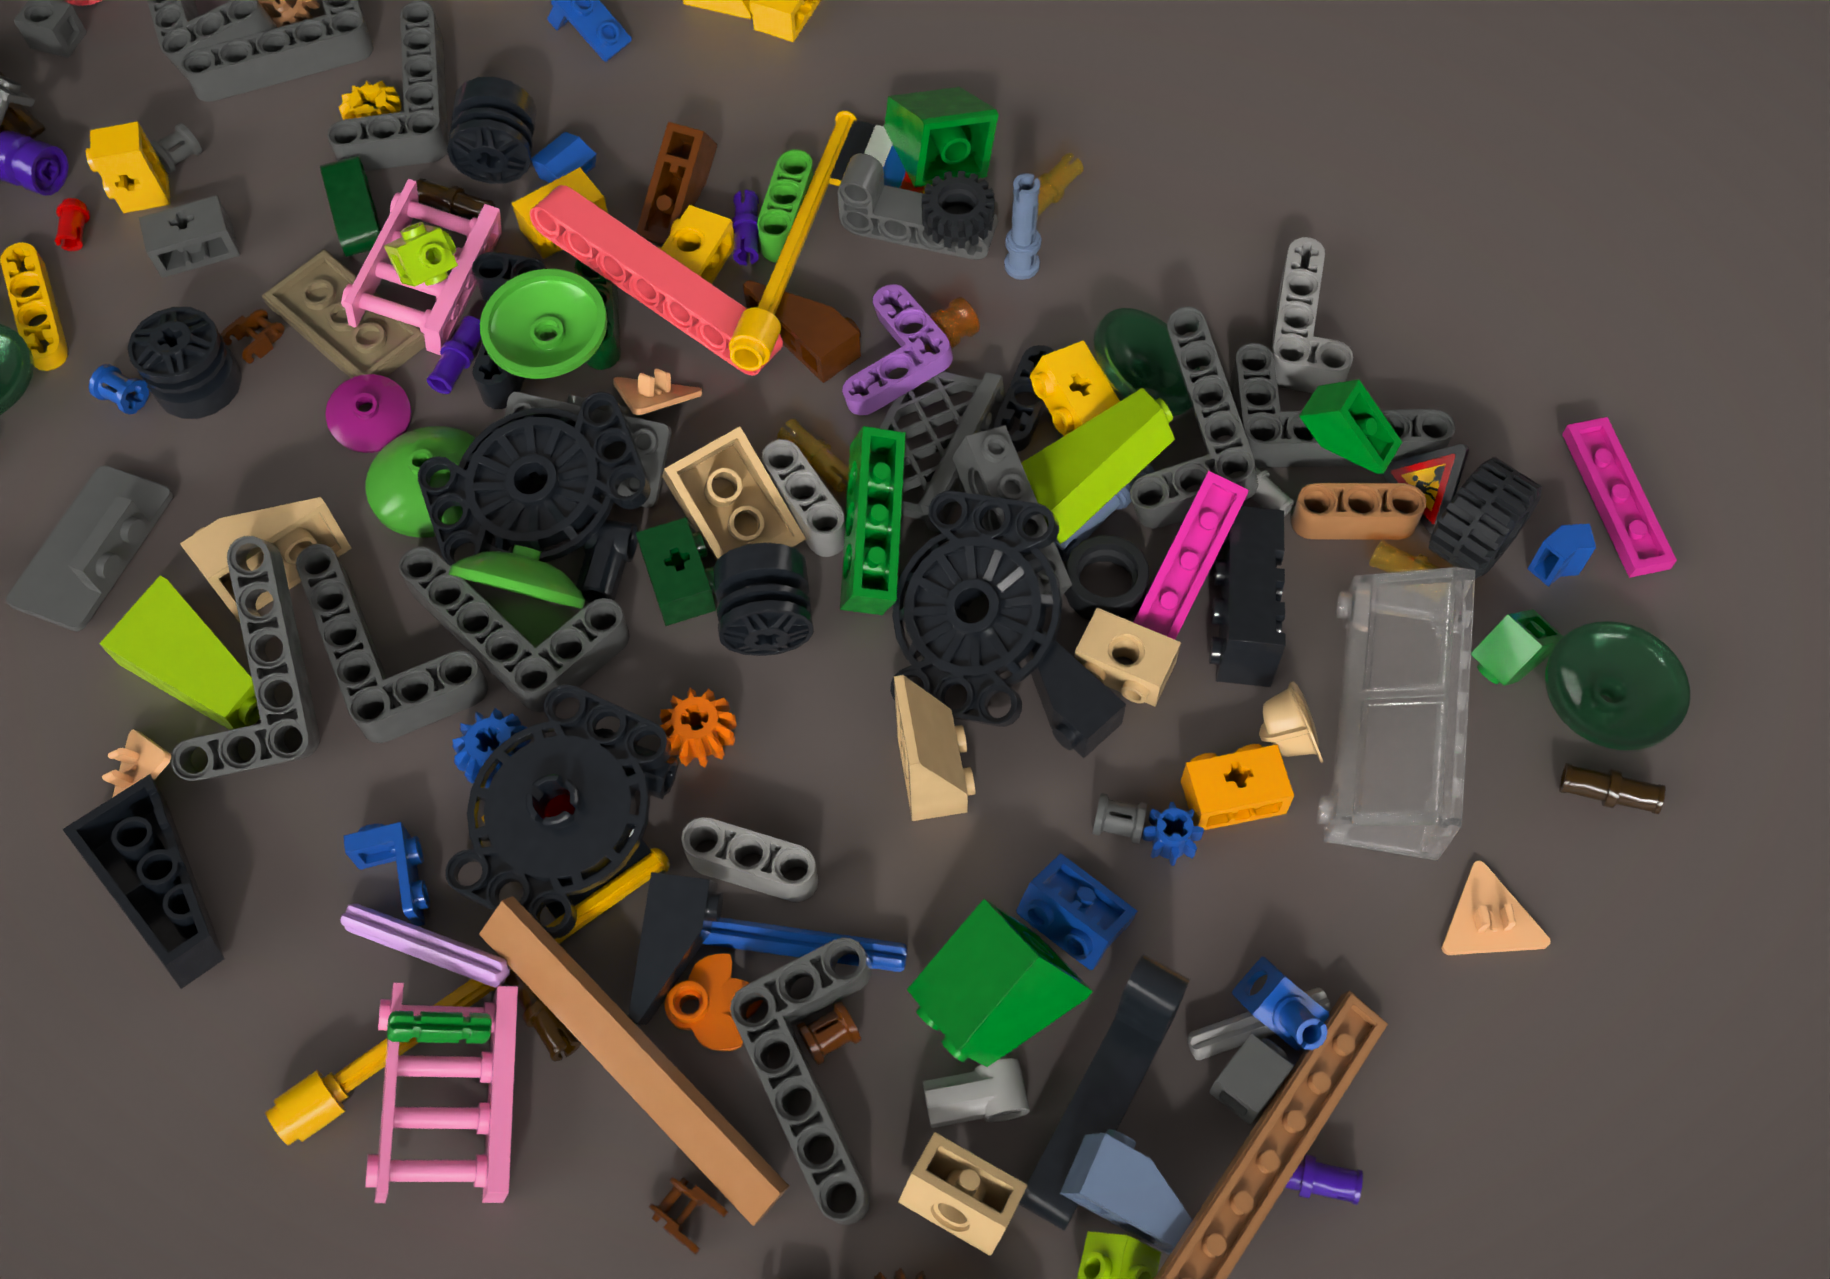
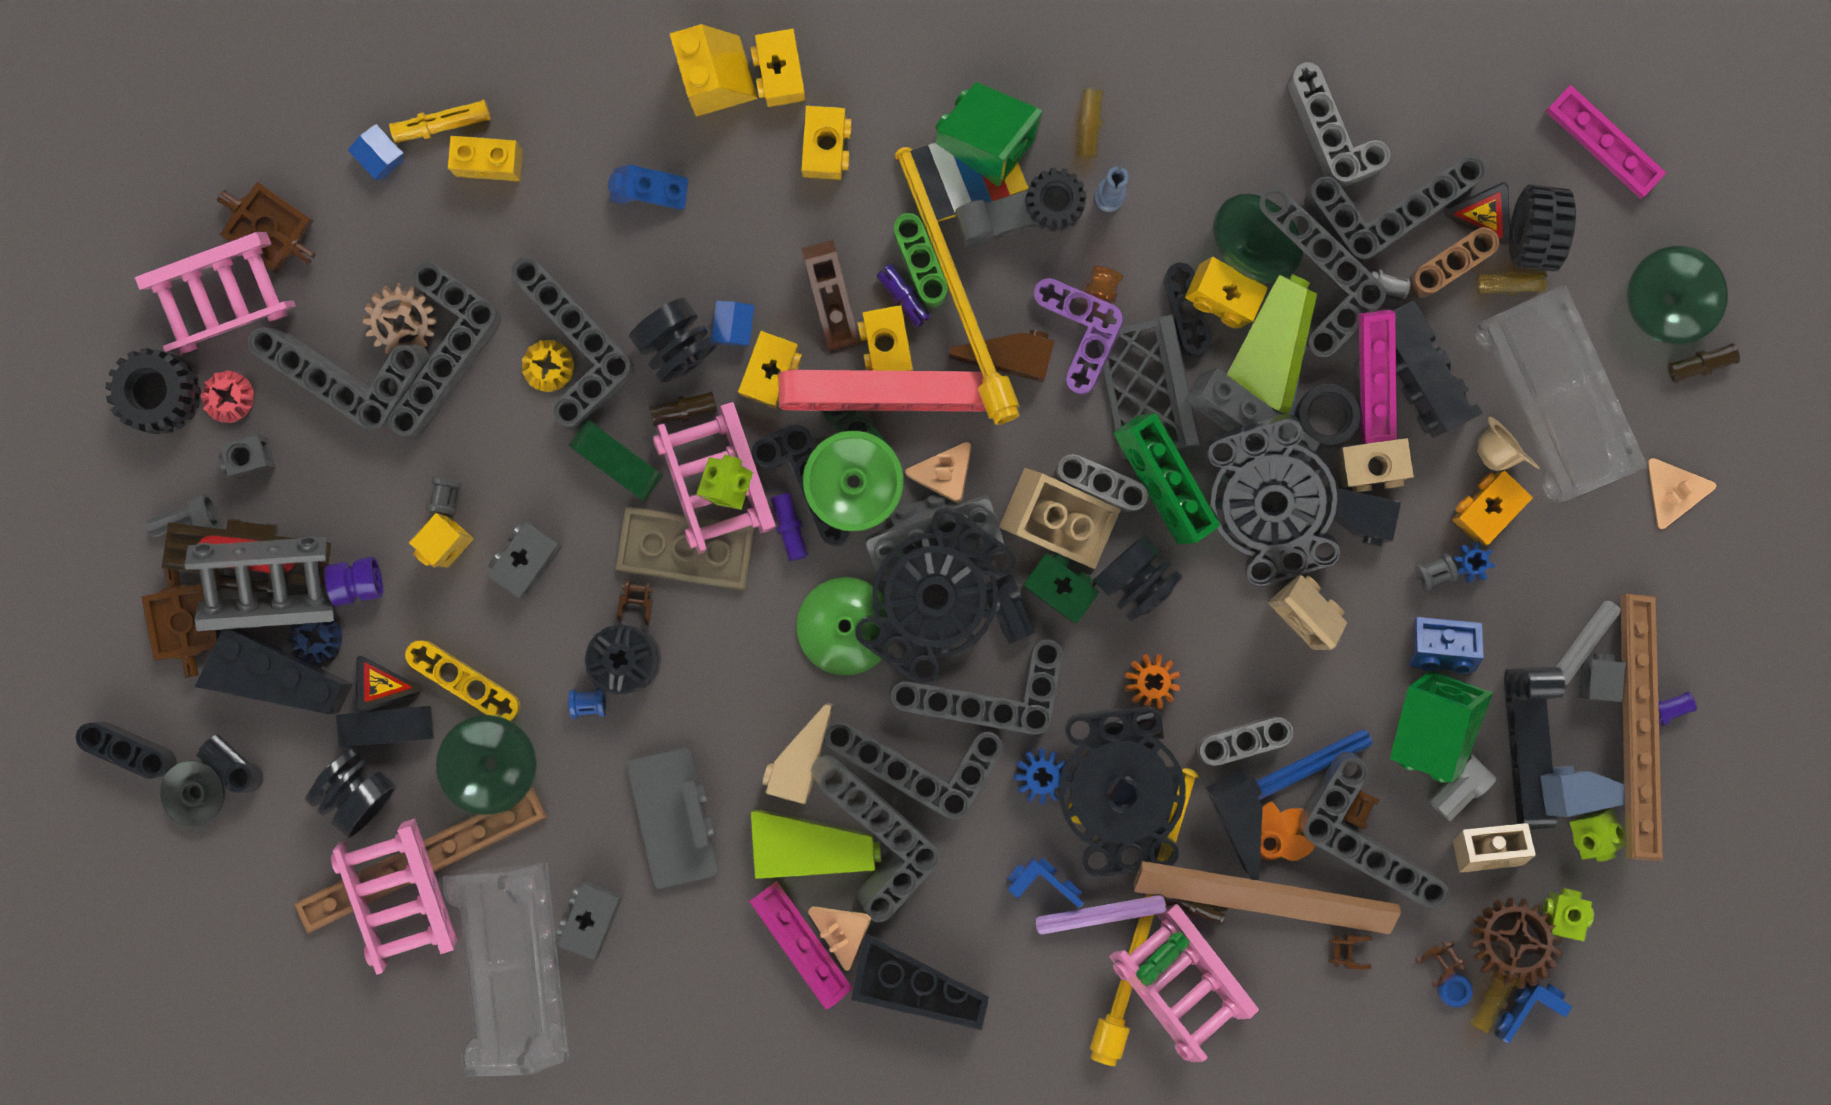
camera: 35 degrees left, 25 degrees up
(72, 219) = (428, 604): red pin -> none
(82, 749) = (801, 945): none -> dark pink plate
(371, 429) = (749, 606): magenta dish -> none
(521, 574) = (987, 673): bright green dish -> none
(777, 70) = (822, 123): none -> yellow brick
(817, 454) = (1084, 445): clear yellow pin -> none
(1283, 1007) = (1597, 629): blue bracket -> none
(1351, 425) = (1424, 214): green slope -> none
(1515, 647) = (1603, 299): green slope -> none
(1563, 553) = (1595, 215): blue piece -> none

